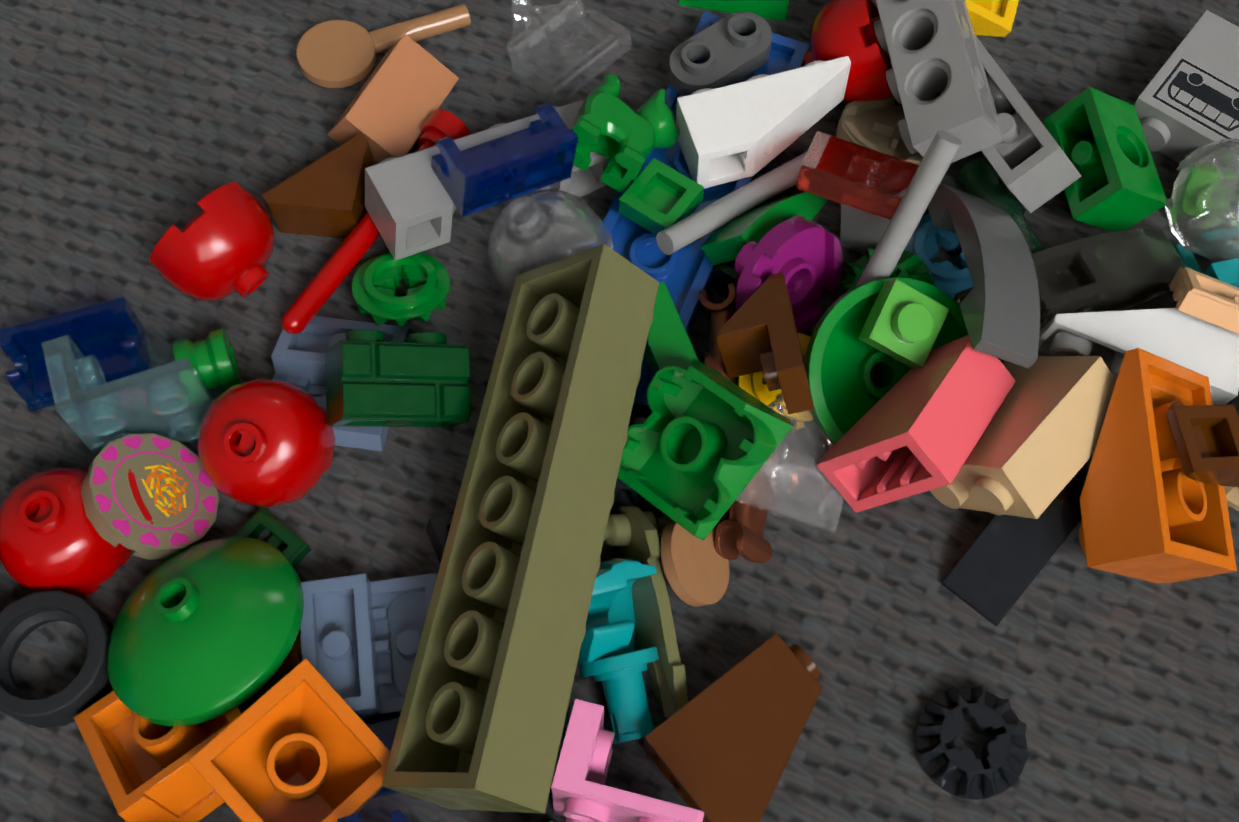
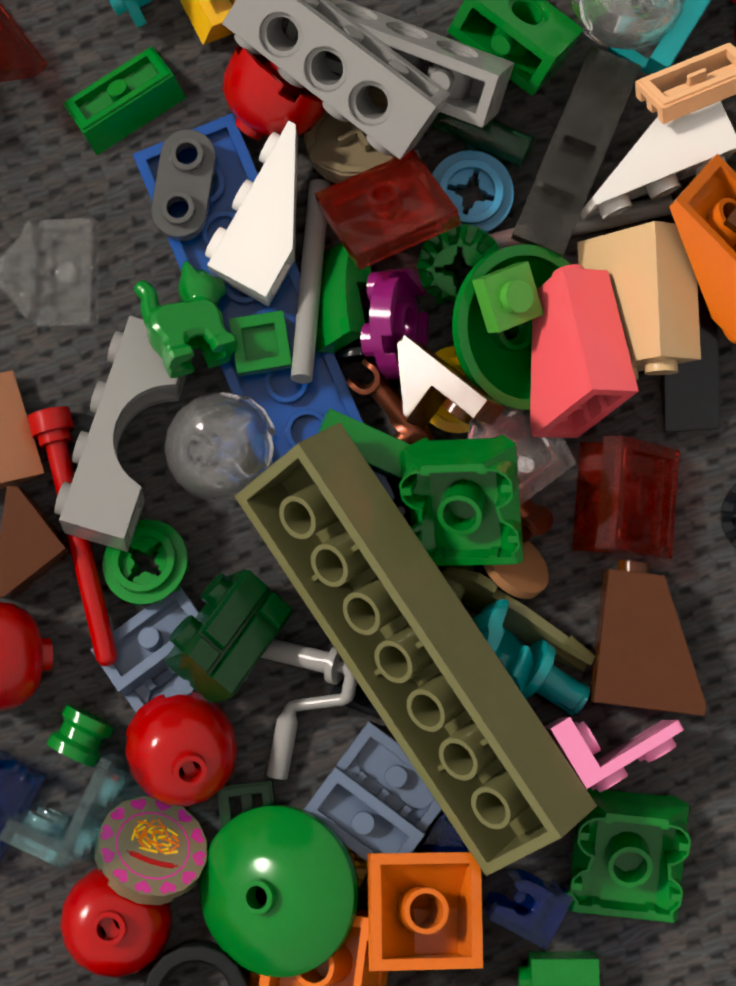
camera: 45 degrees left, 20 degrees up
(373, 510) = (287, 723): none -> light grey piece
(508, 164) = (143, 423): clear blue hinge -> none
(856, 598) = (626, 498): none -> clear red bracket
(911, 207) = (452, 230): light grey bar -> none
(1005, 298) = (528, 197): dark grey slope -> none

